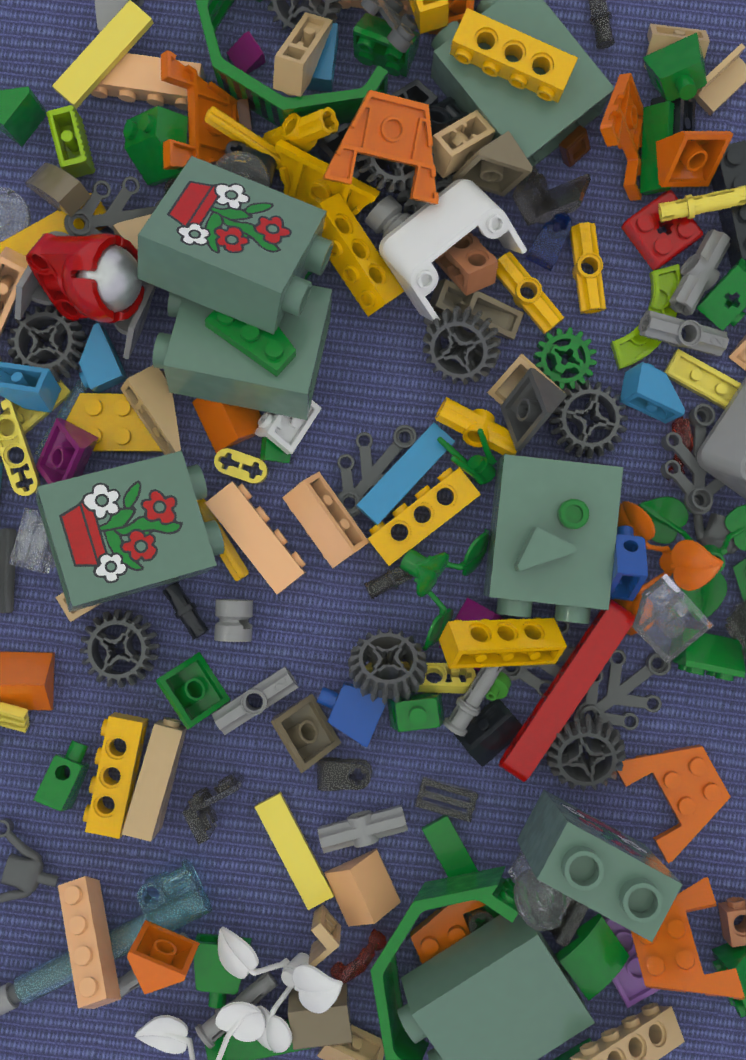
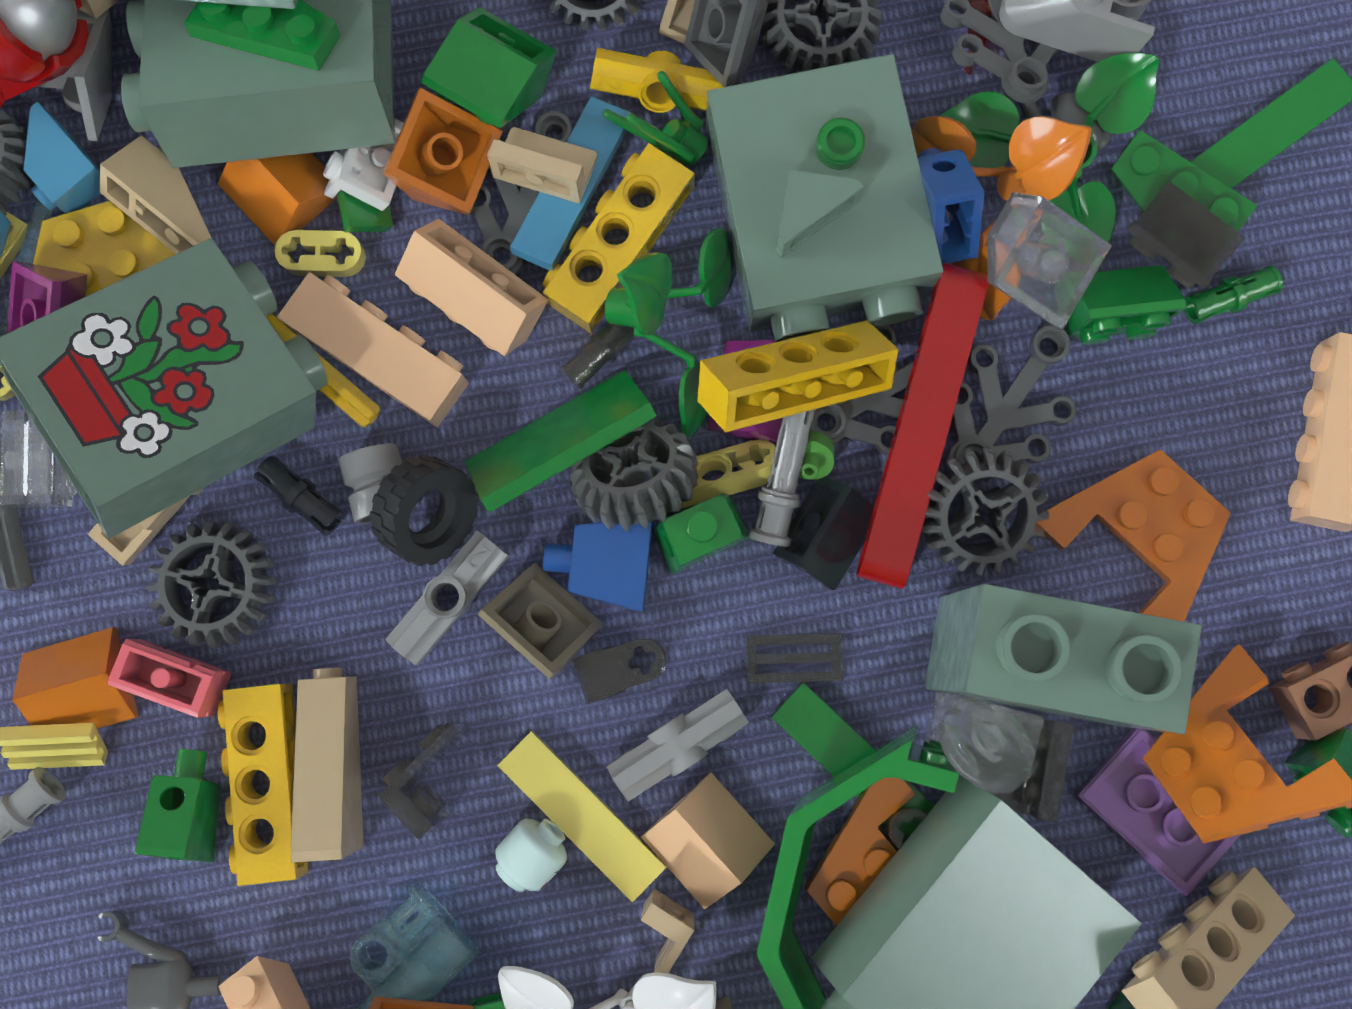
camera: 10 degrees left, 5 degrees down
(79, 697) = (169, 678): none -> coral brick
(193, 690) = (345, 612): green slope -> none
(251, 636) = (399, 495): none -> black tyre
(258, 865) = (531, 855): none -> light aqua head
(334, 432) = (441, 154): none -> orange slope
(346, 973) = (744, 960): clear red arm -> none
(349, 630) = (558, 440): none -> green tile
(378, 389) = (490, 68): none -> green slope
(392, 459) = (542, 164): none -> tan panel
(593, 957) = (1104, 825): green slope -> none

